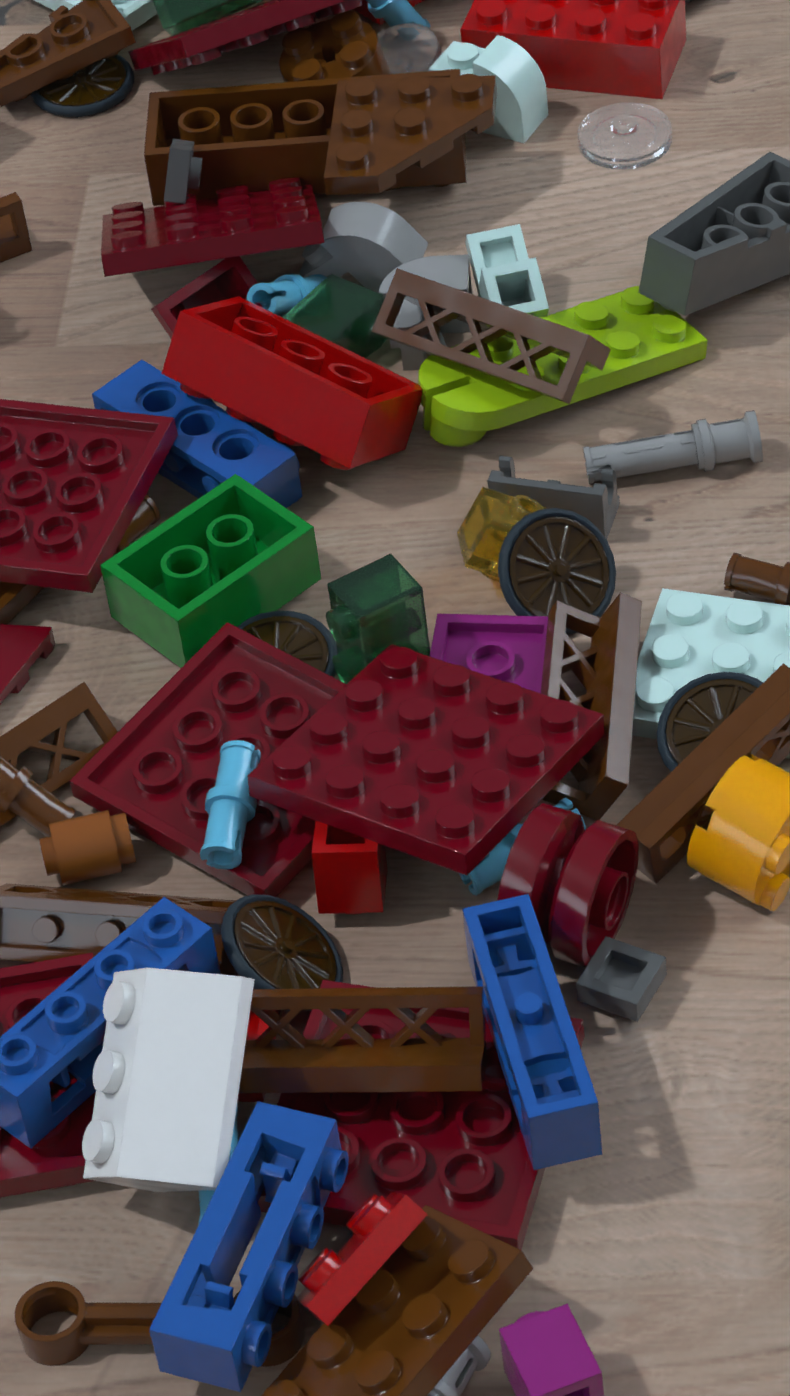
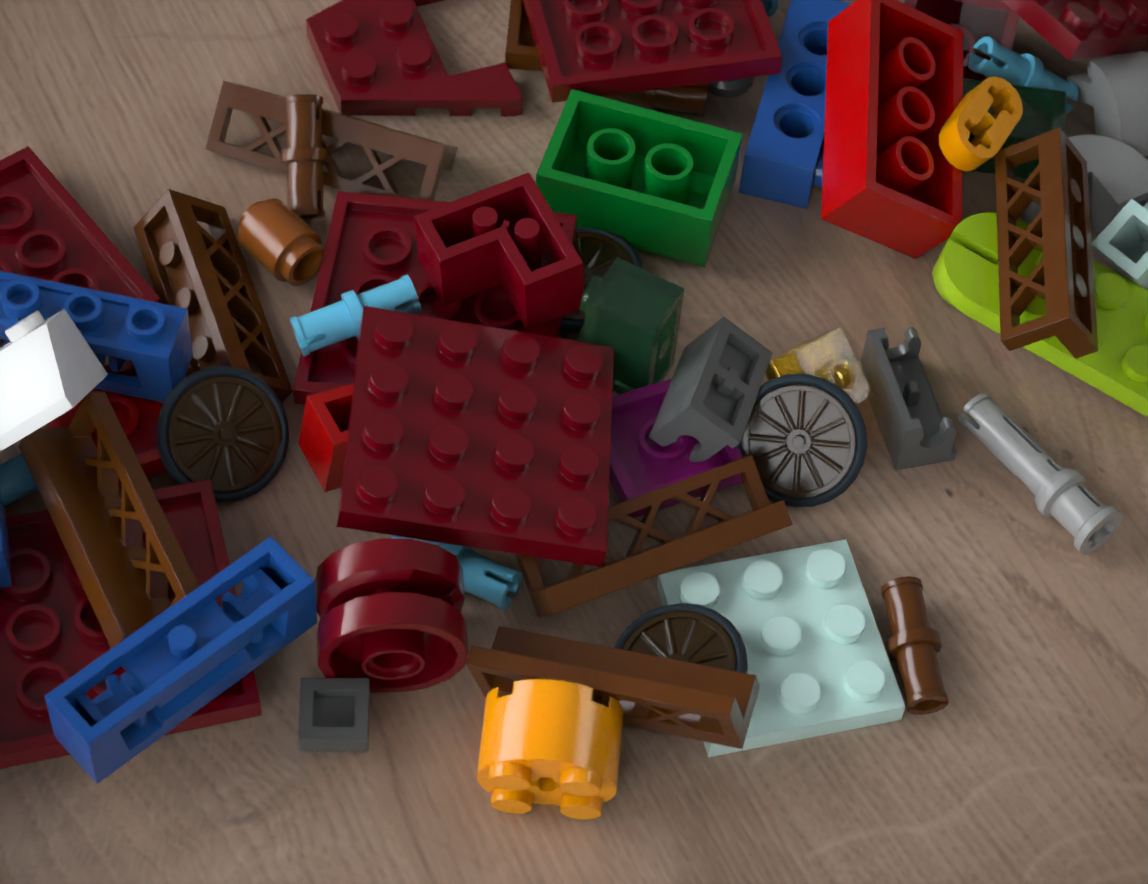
camera: 50 degrees right, 10 degrees up
(256, 653) = (503, 240): none -> dark red brick
(339, 325) = (988, 128): none -> light orange beam
(481, 599) = (713, 390): none -> dark grey hinge

